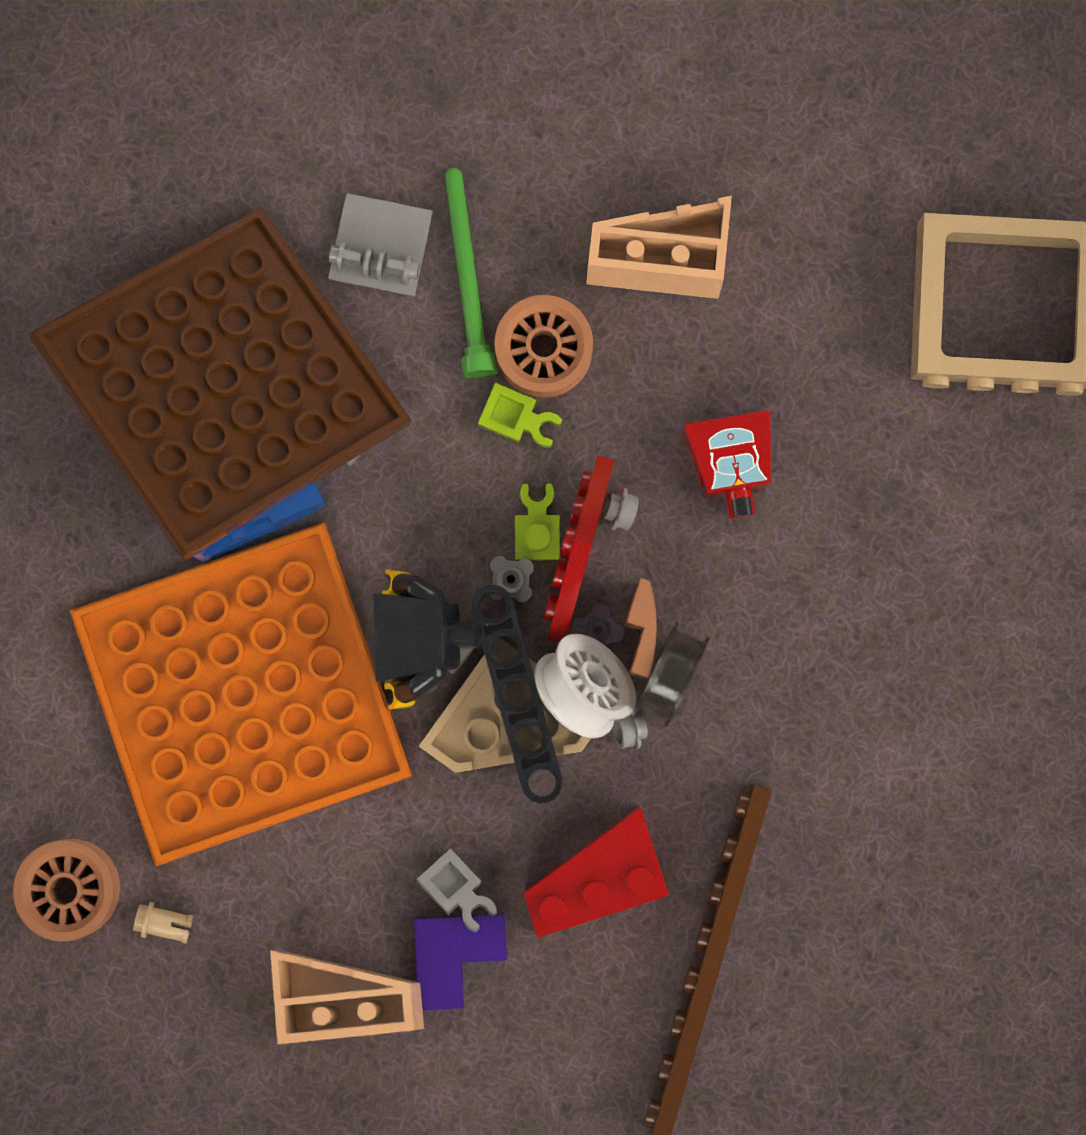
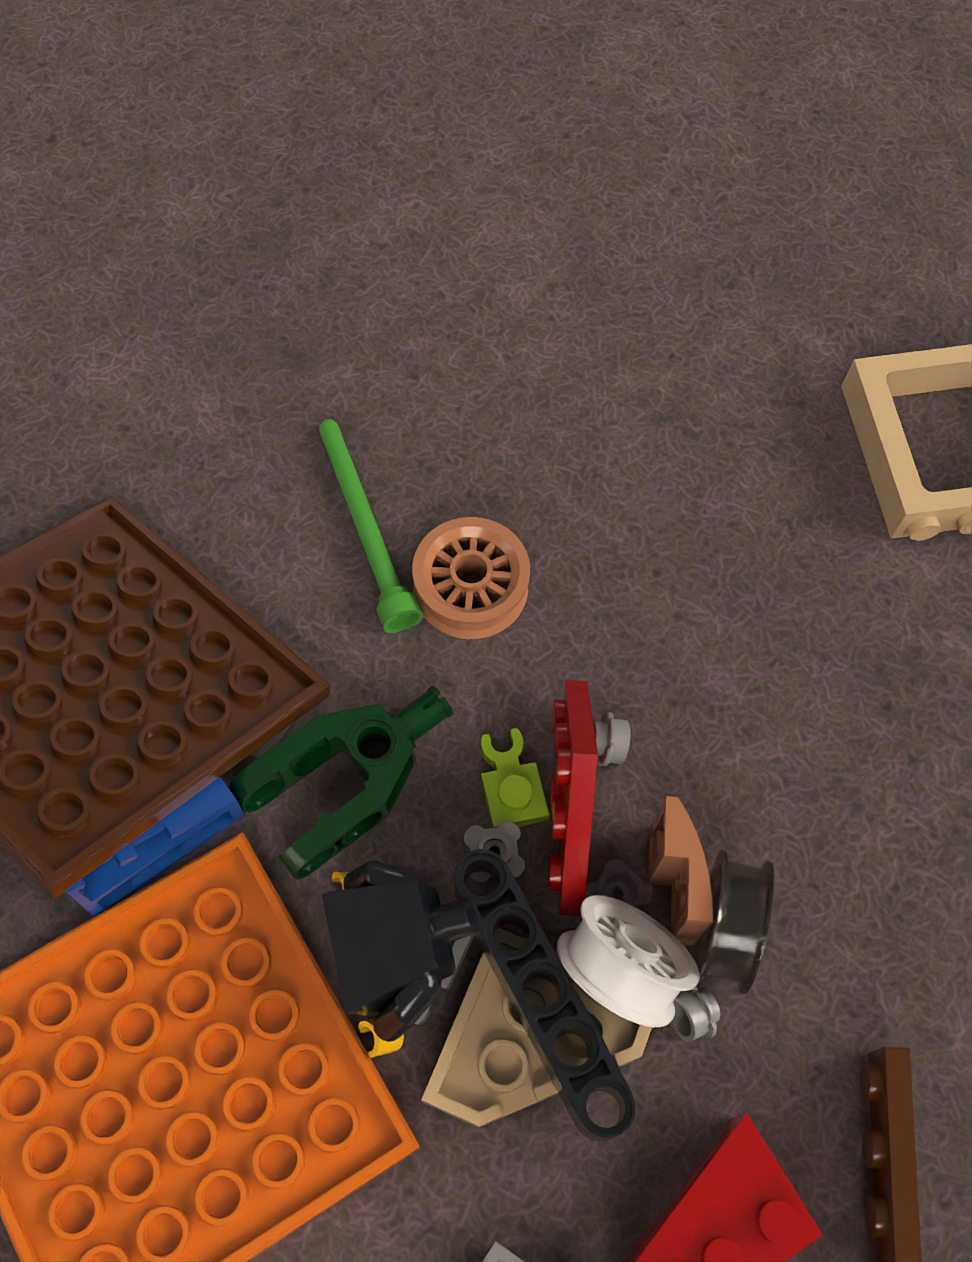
camera: 15 degrees left, 20 degrees down
(380, 245) = (258, 511): light grey hinge -> none
(420, 462) = (320, 741): none -> dark green piece
(512, 415) = (450, 658): lime plate -> none
(663, 251) = (583, 451): light nougat wedge -> none
(732, 458) = (723, 653): red torso -> none

